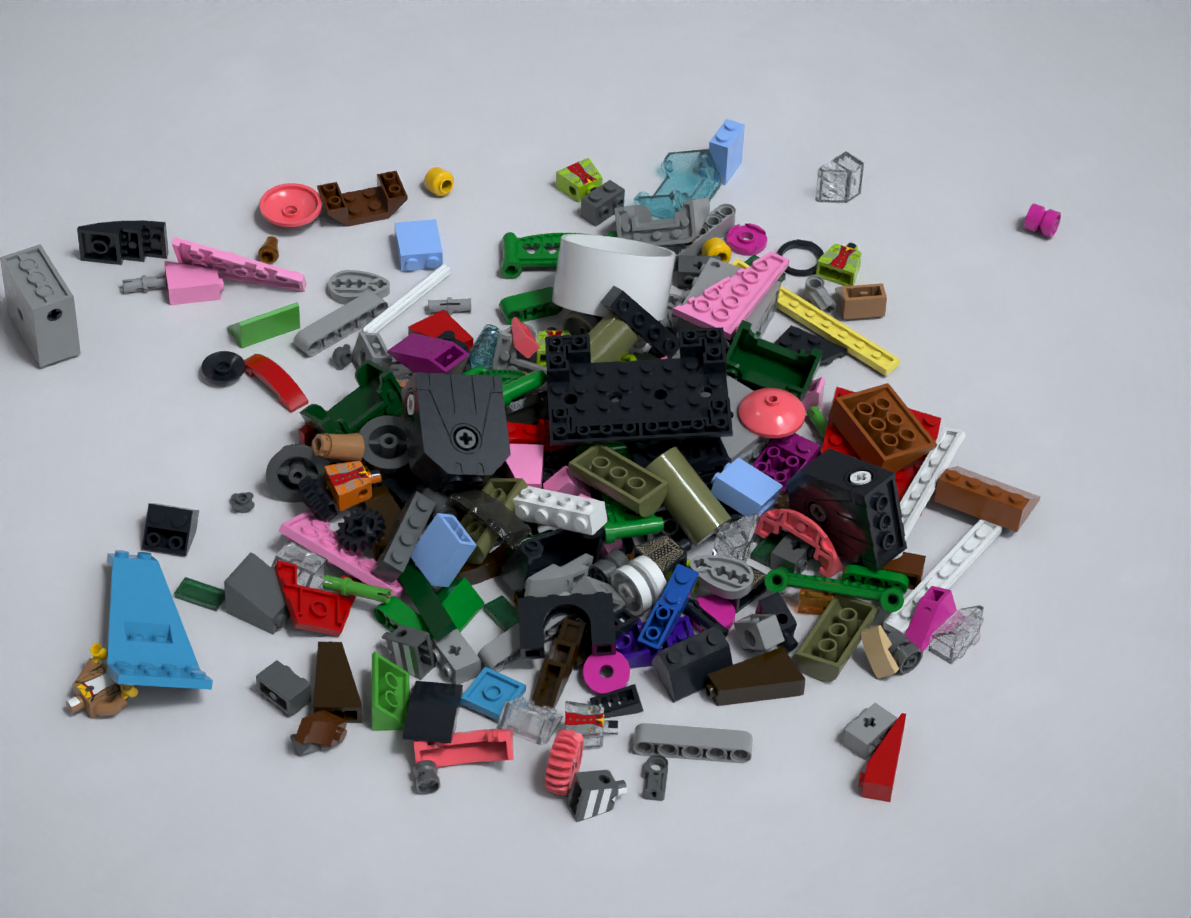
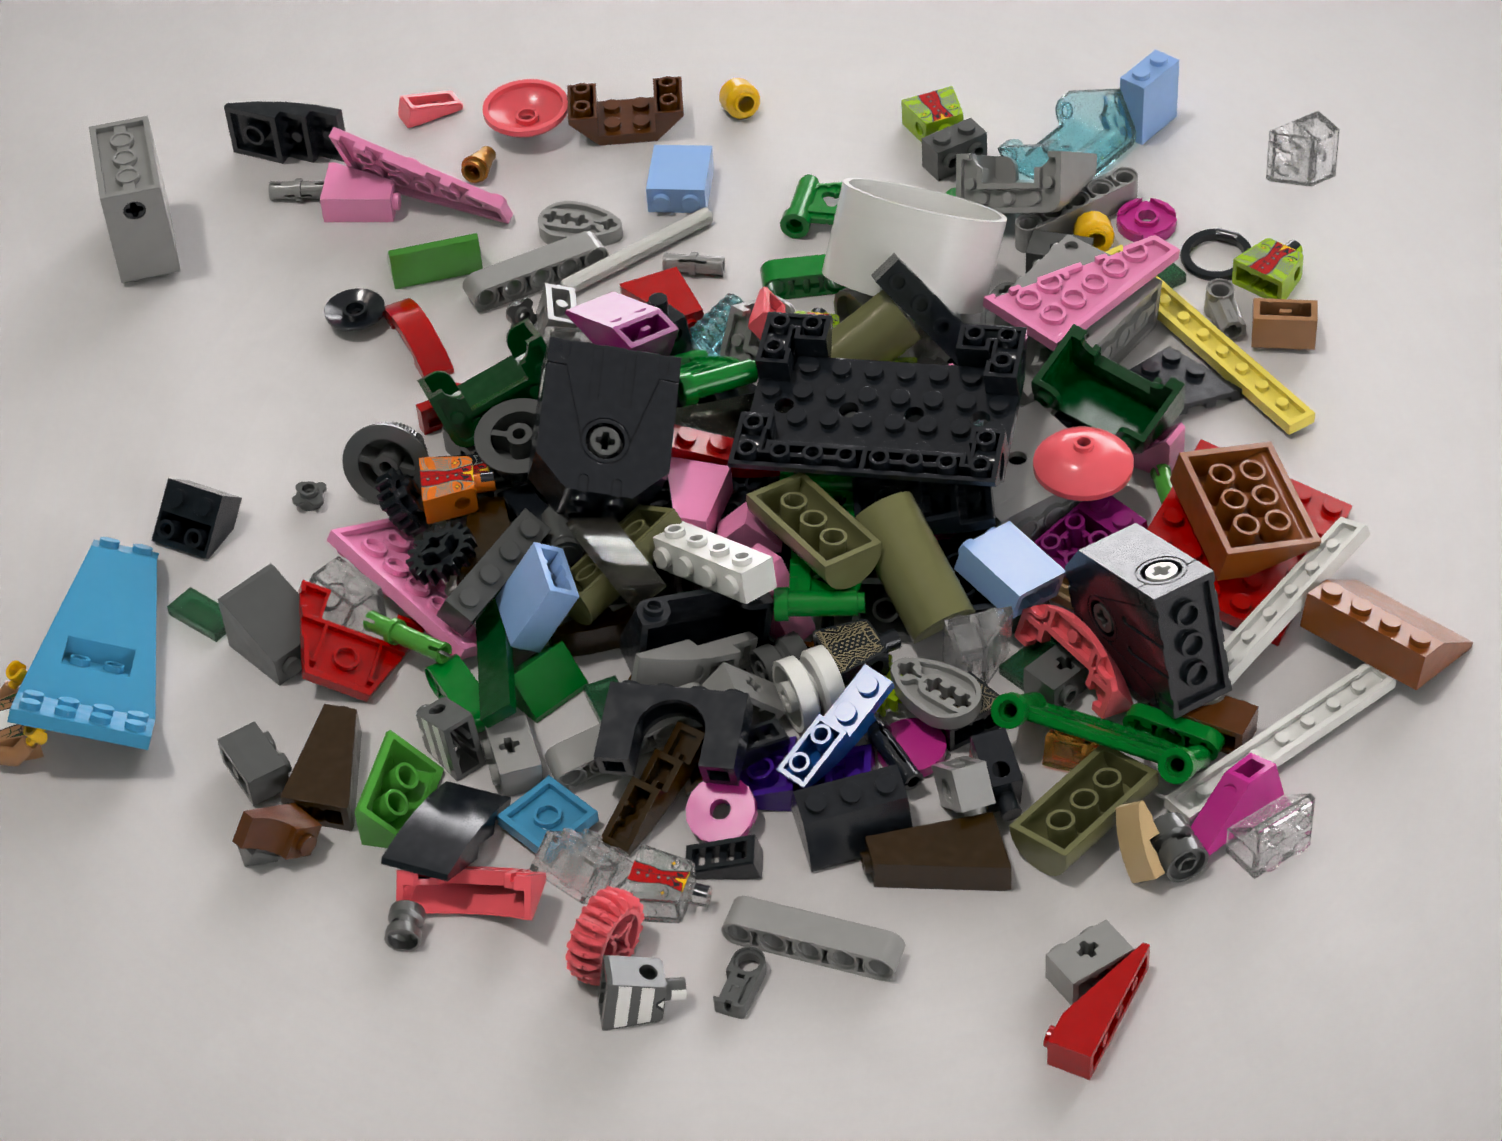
camera: 20 degrees right, 0 degrees up
(213, 211) = (425, 107): none -> coral slope
(339, 446) = (445, 432): medium nougat plant -> none

